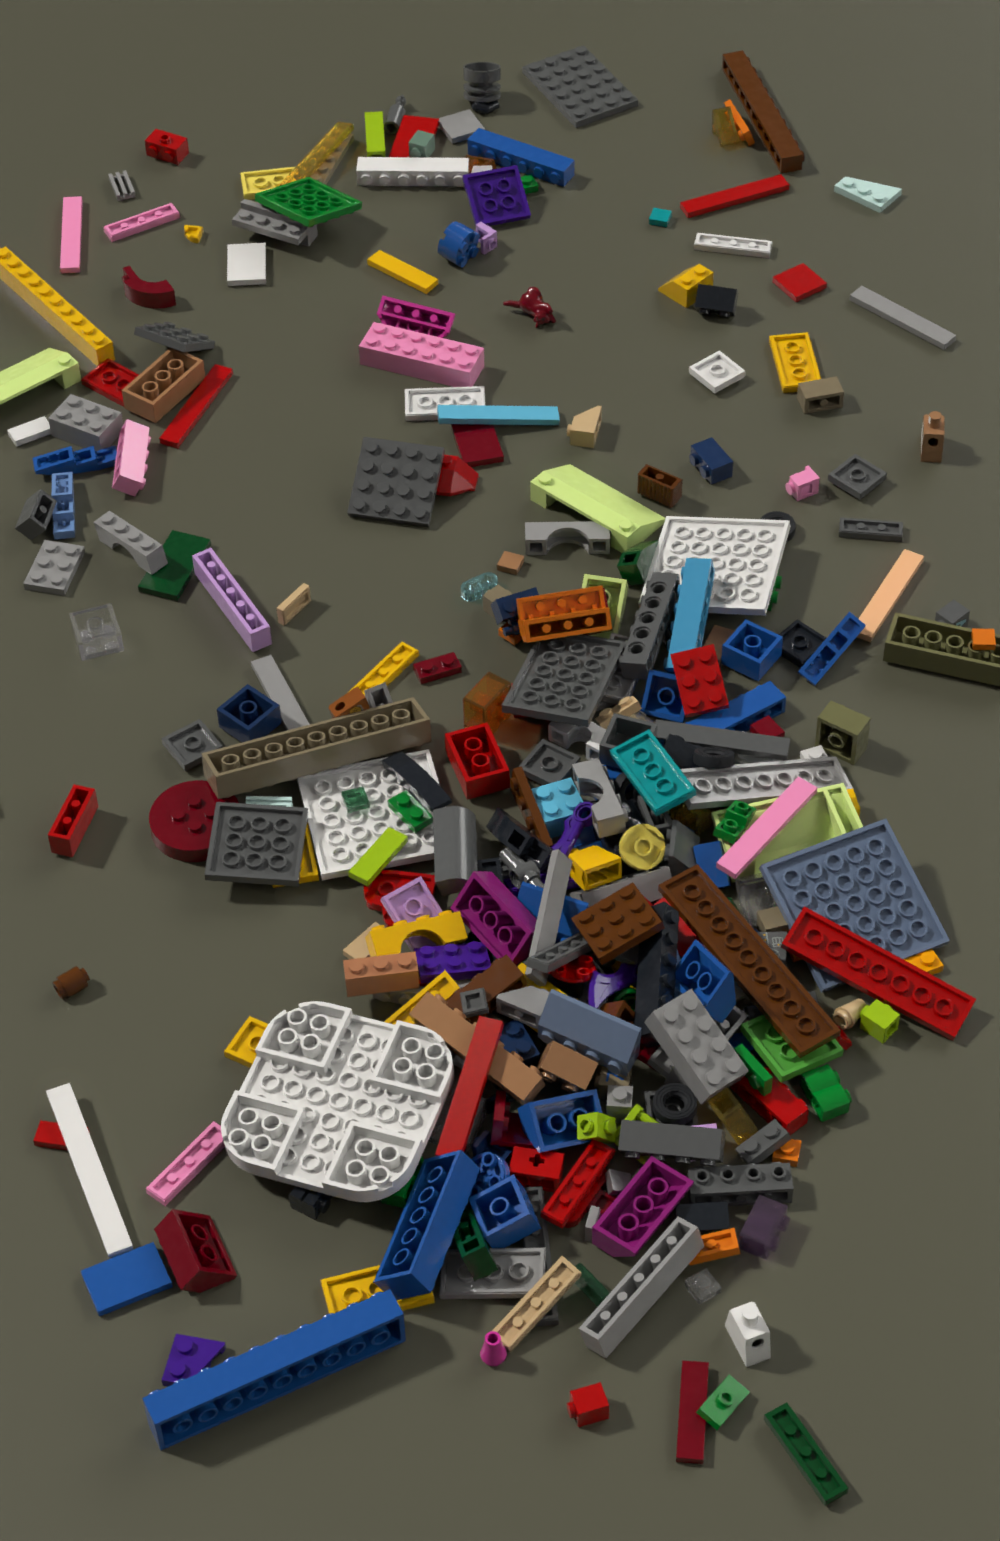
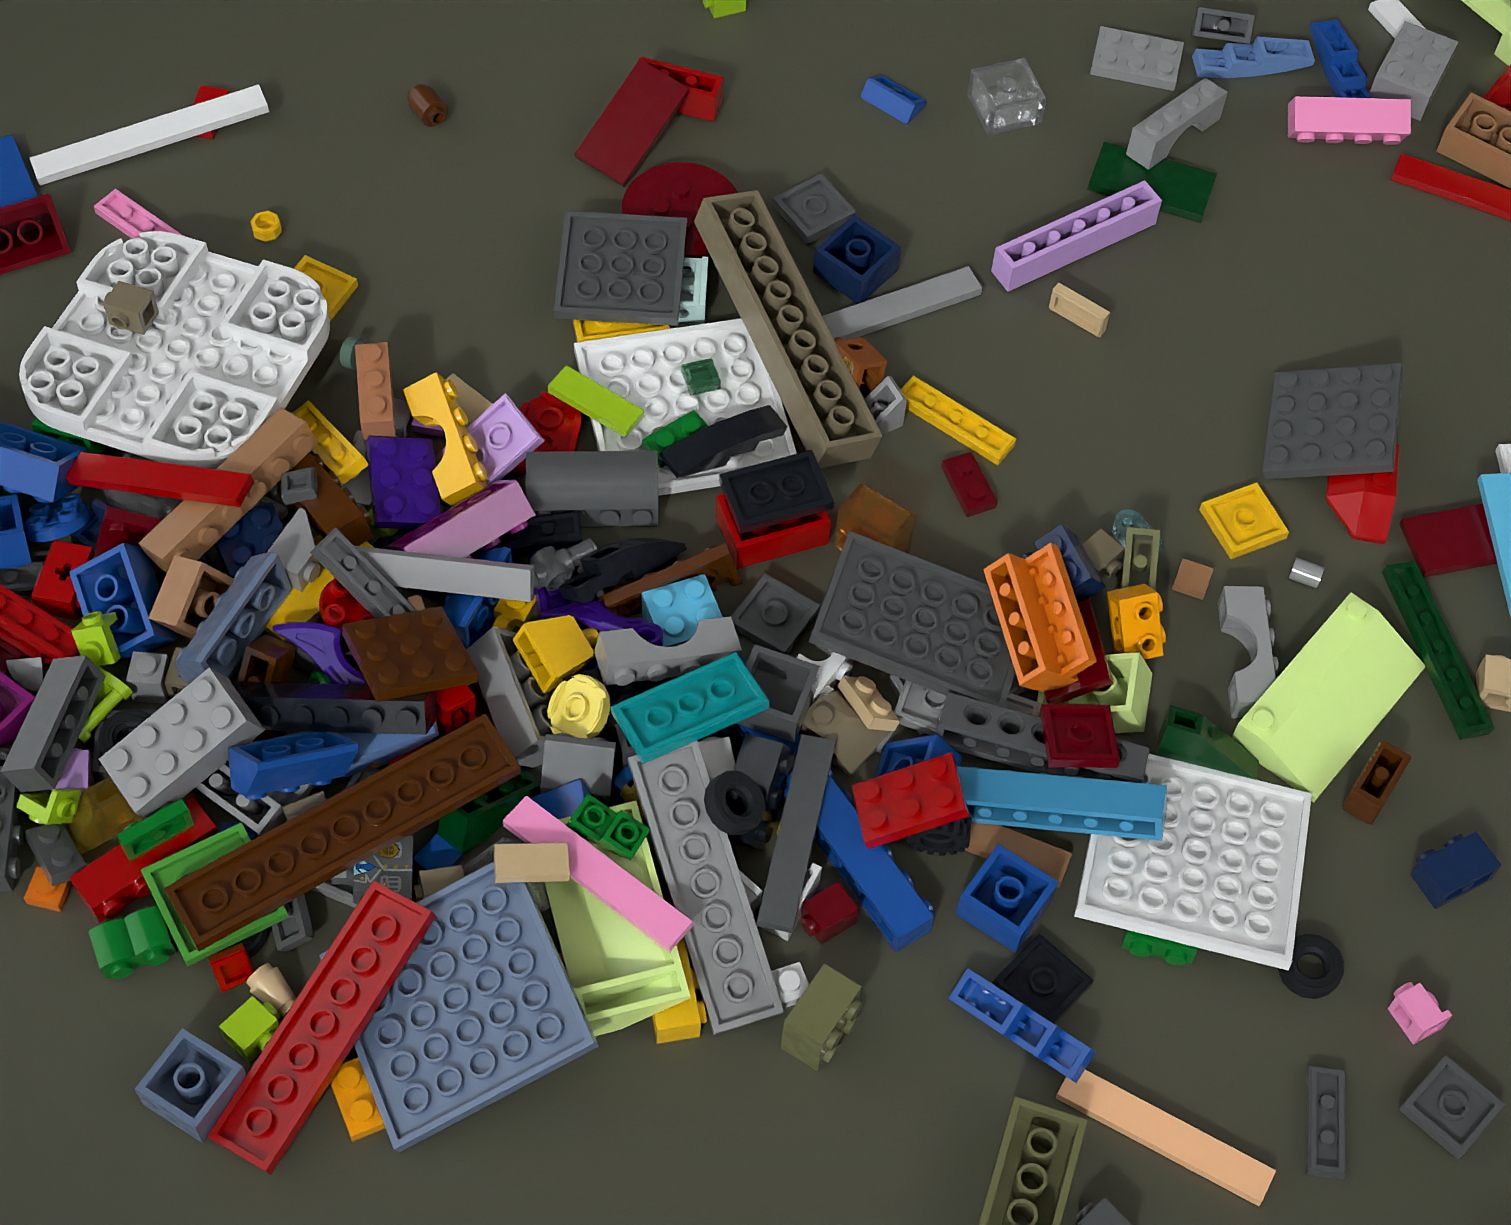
camera: 85 degrees right, 10 degrees up
(82, 703) = (892, 98): none -> blue slope
(110, 843) = (632, 122): none -> dark red tile
(192, 1080) = (266, 226): none -> yellow tile
(308, 1123) = (130, 307): none -> dark tan brick
(464, 536) = (1243, 520): none -> yellow tile
(468, 744) = (776, 491): none -> black plate
(505, 509) = (1306, 572): none -> light grey hinge
(510, 575) = (1140, 557): none -> olive brick
(553, 578) = (1136, 621): none -> light orange brick
(559, 456) = (1438, 650): none -> dark green plate
(650, 599) = (1079, 735): none -> dark red tile
(734, 1144) = (52, 808): none -> lime bracket
(769, 851) = (531, 862): none -> tan tile
(925, 1042) = (190, 1084): none -> sand blue brick

